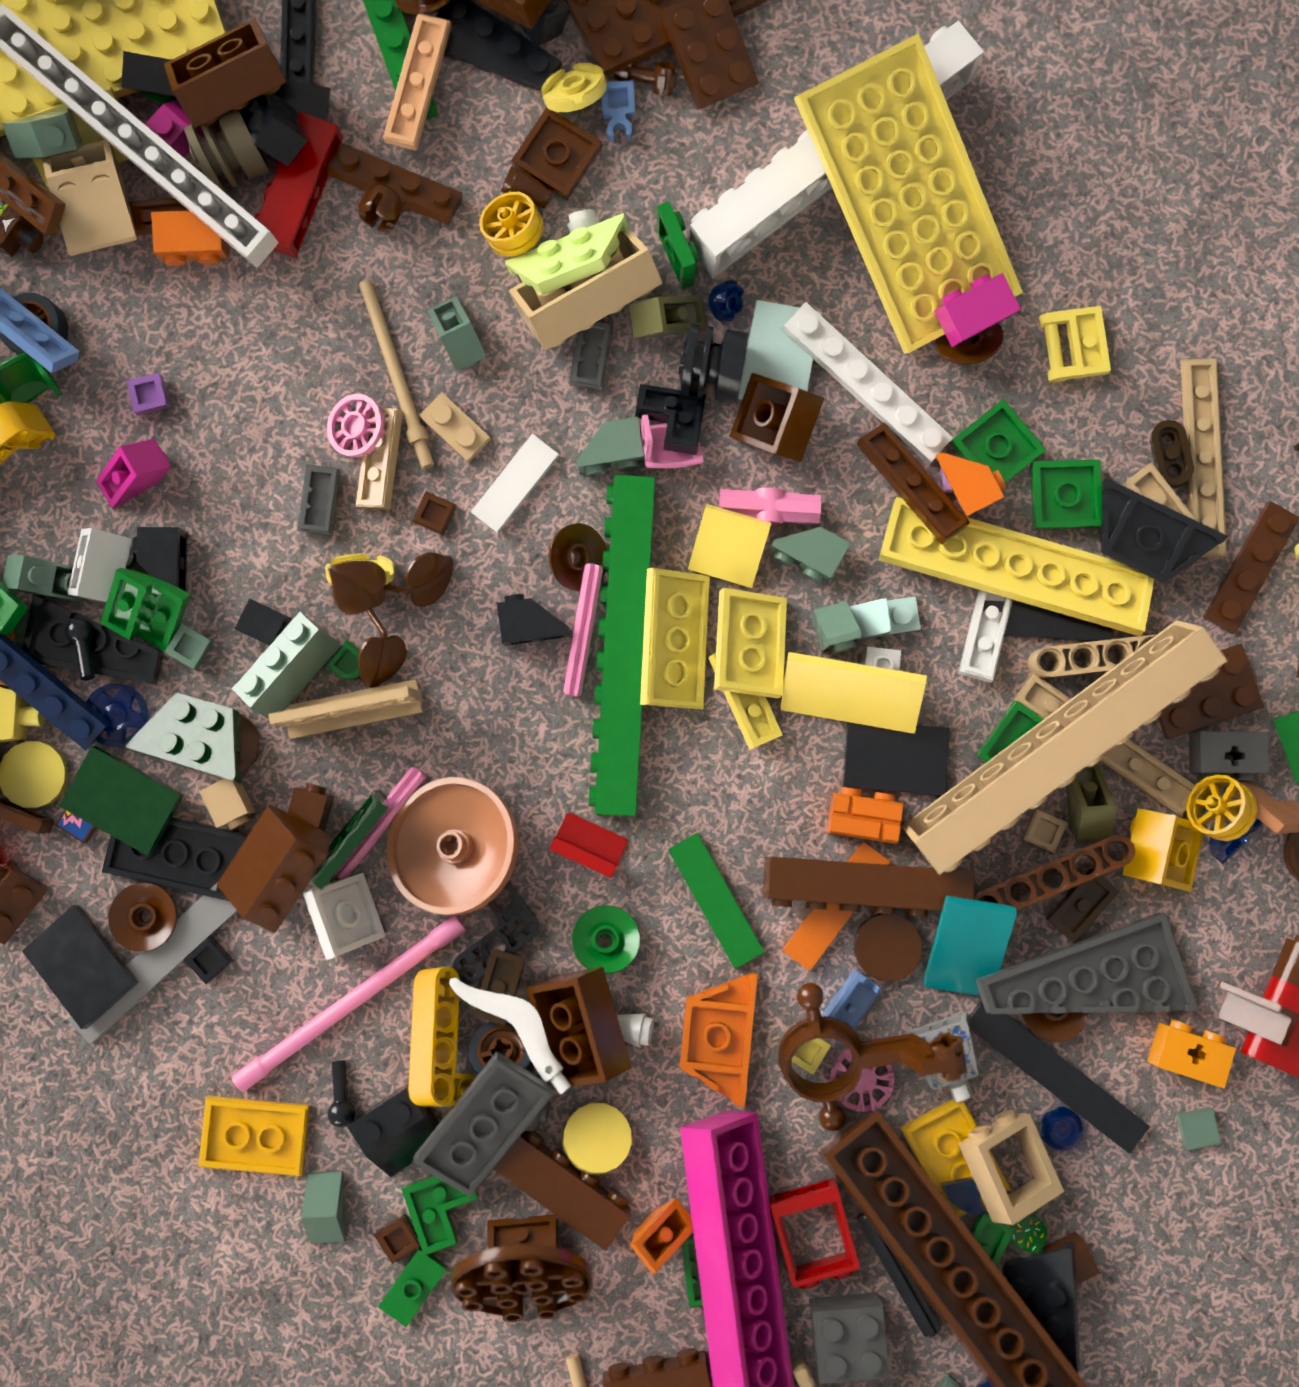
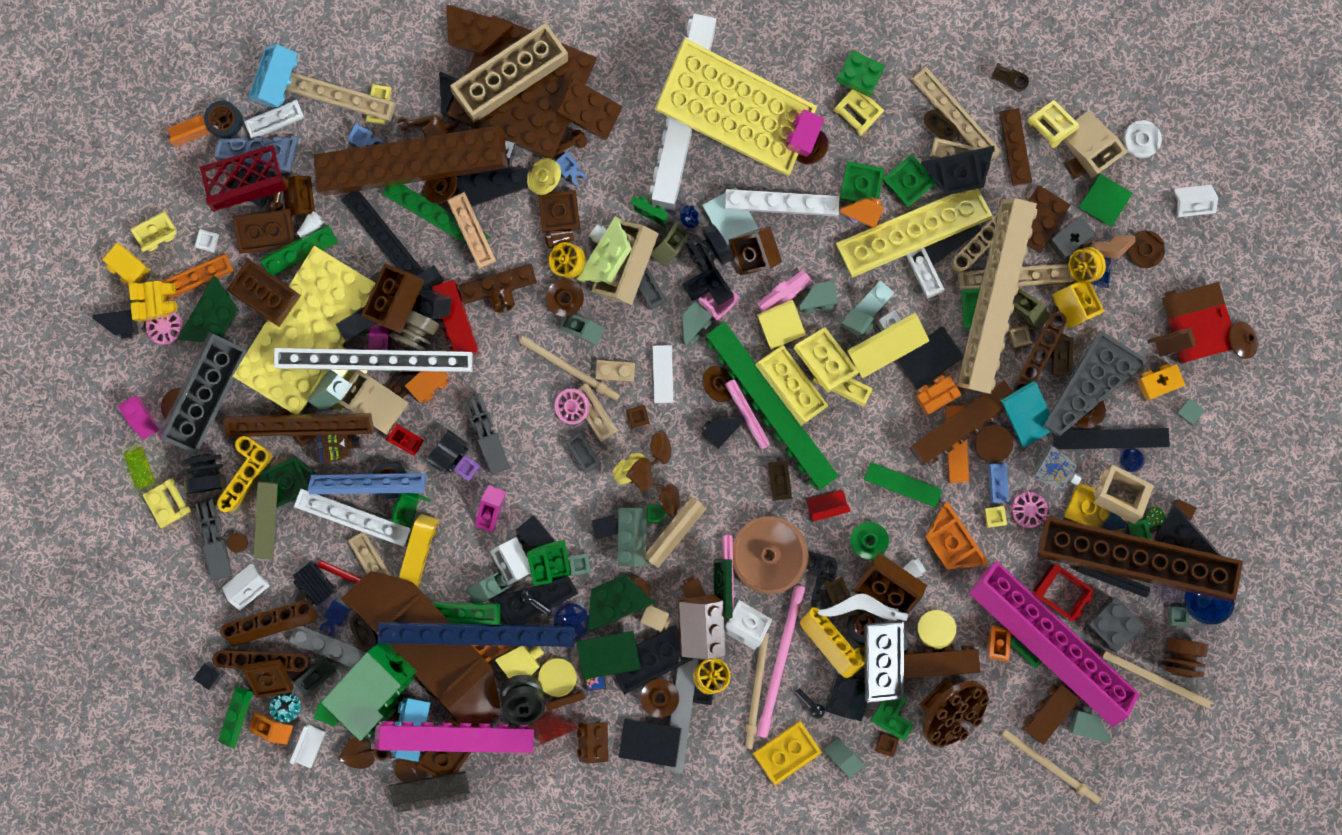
camera: 40 degrees left, 0 degrees up
(95, 285) = (404, 439): none -> red slope
(139, 351) = (447, 452): none -> black brick
(206, 380) = (489, 444): none -> dark grey arm
(234, 1060) = (751, 727): none -> tan bar
(237, 947) = (711, 676): none -> yellow wheel
(412, 1287) = (910, 759): green plate -> none
(464, 258) = (562, 288): none -> reddish brown dish
(552, 756) = (780, 480): none -> dark brown plate
(913, 483) = (838, 231): reddish brown tile -> none
(941, 1057) = (1054, 470): reddish brown piece -> none
(1119, 295) = (860, 73): none -> green plate

